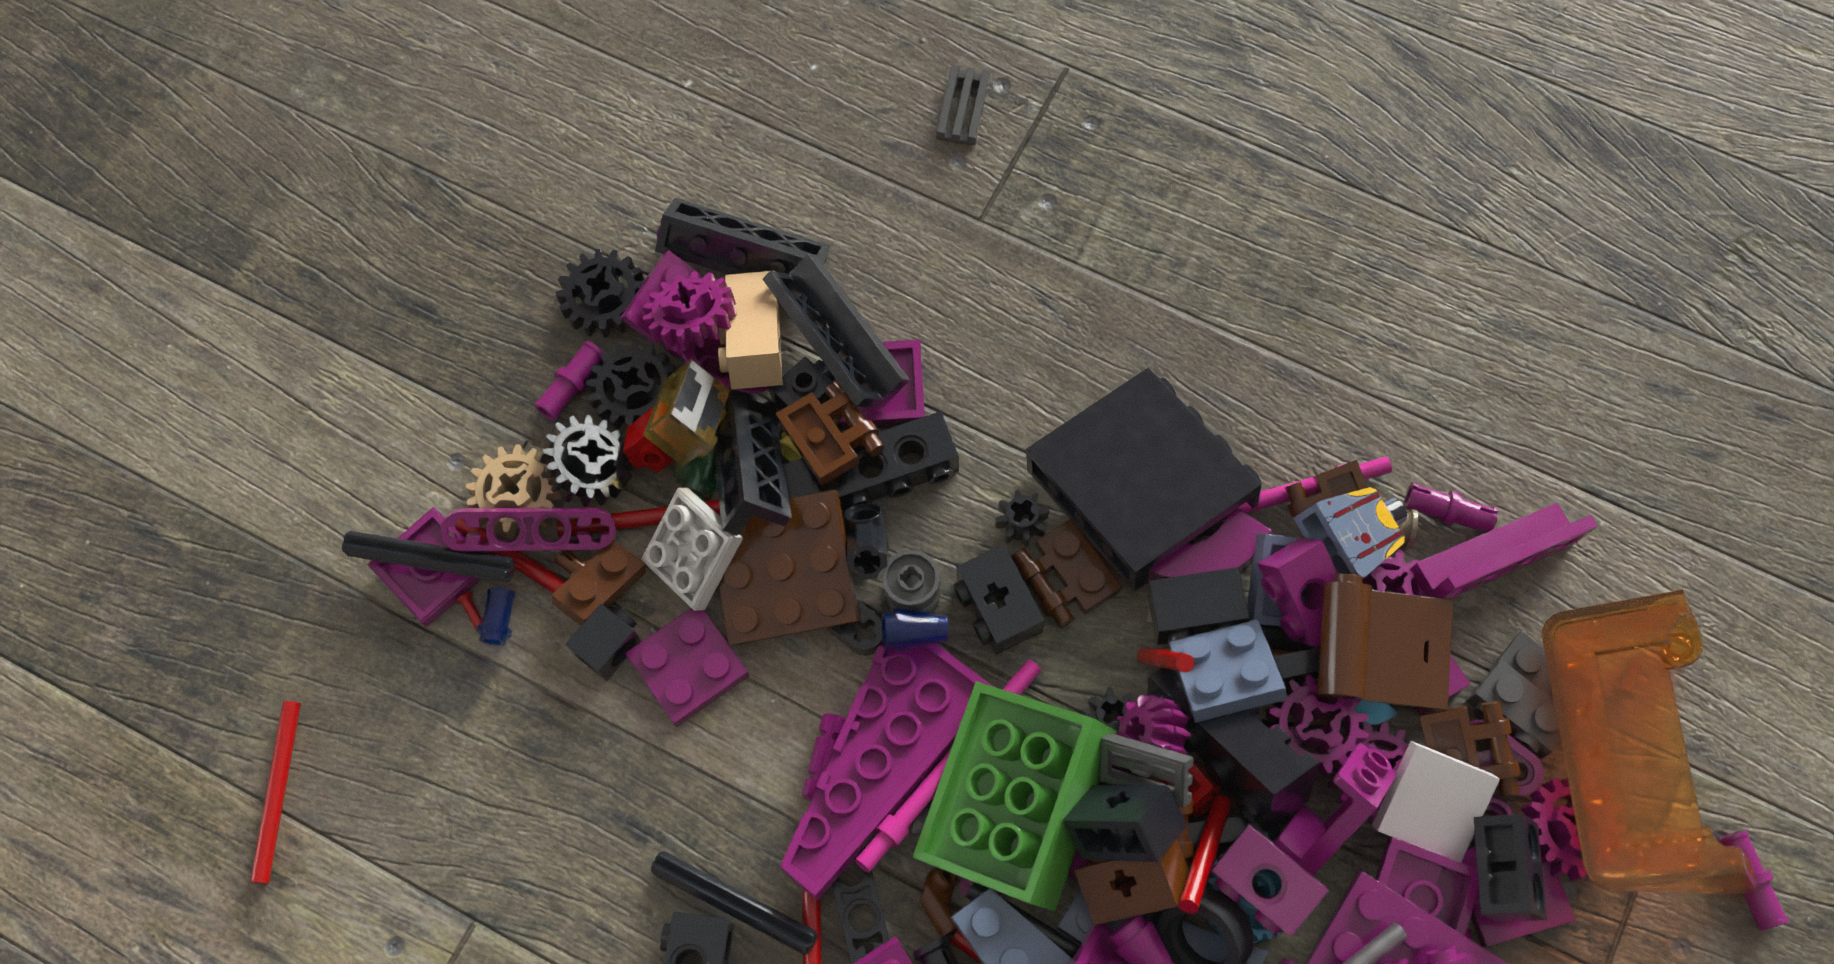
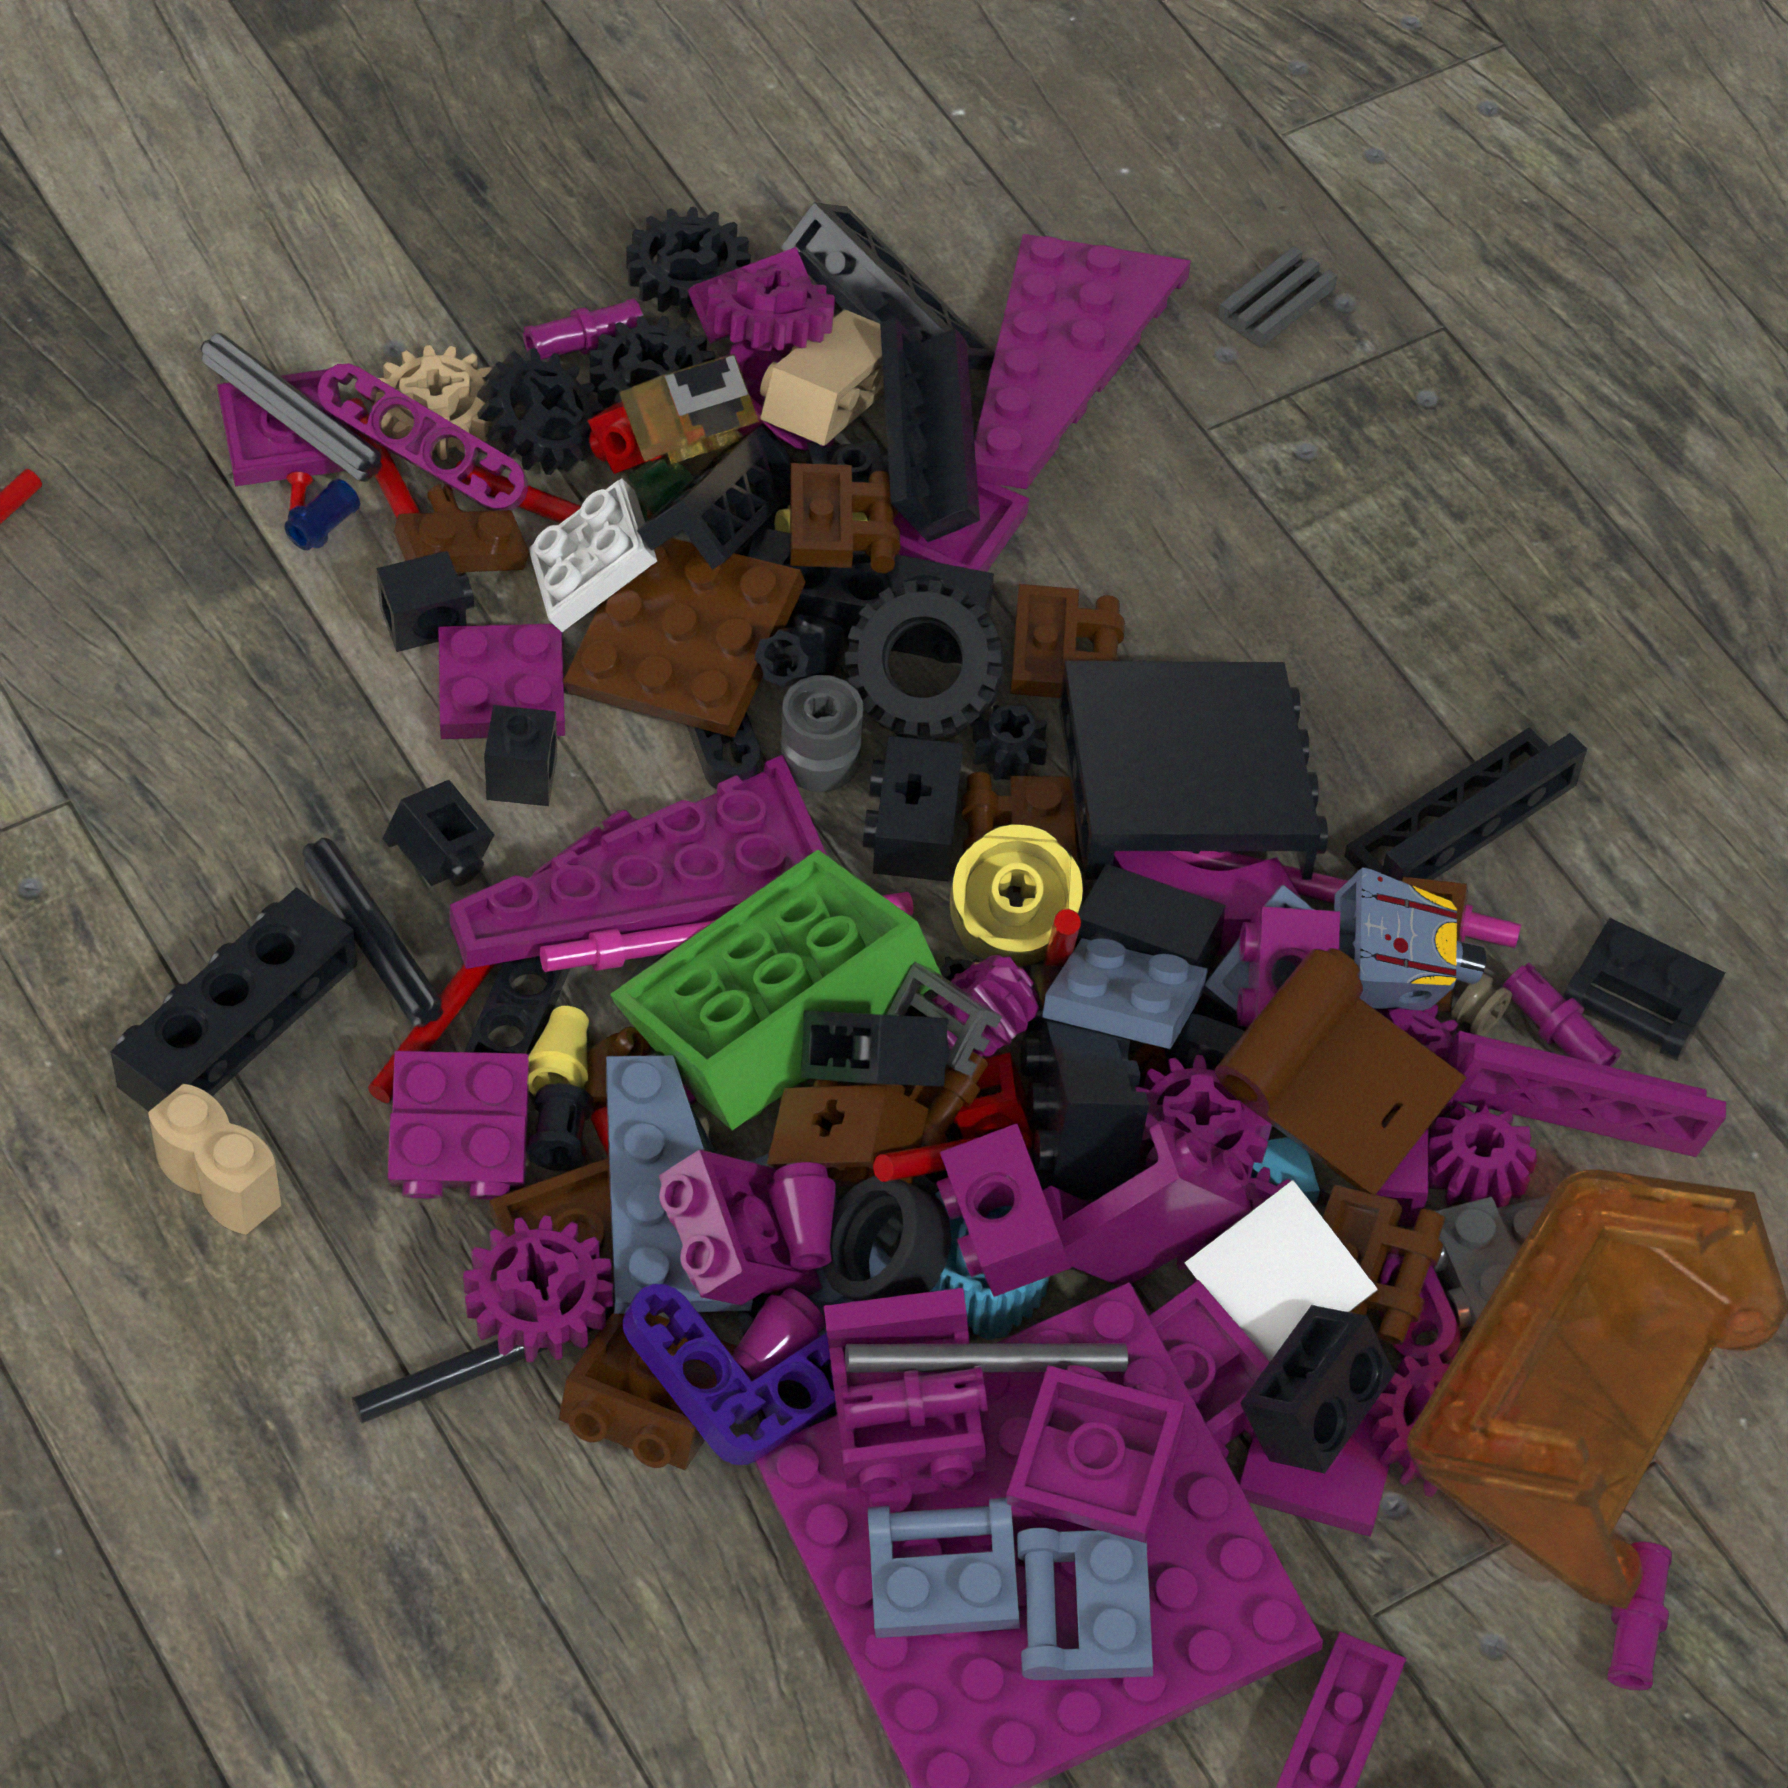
camera: 25 degrees right, 15 degrees down
(734, 794) = (440, 834): none -> black brick
(740, 717) = (520, 755): none -> black brick
(861, 208) = (1062, 338): none -> magenta wing
(906, 914) = (560, 1050): none -> light yellow cone
(912, 629) = (787, 770): clear blue cone -> none
(969, 526) = (915, 607): none -> black tyre
(992, 429) = (1047, 635): none -> reddish brown plate
(1129, 640) = (1007, 858): none -> light yellow brick
(1319, 400) = (1476, 822): none -> black fence
(1476, 443) = (1648, 976): none -> black plate
(1489, 638) = (1480, 1156): none -> magenta gear

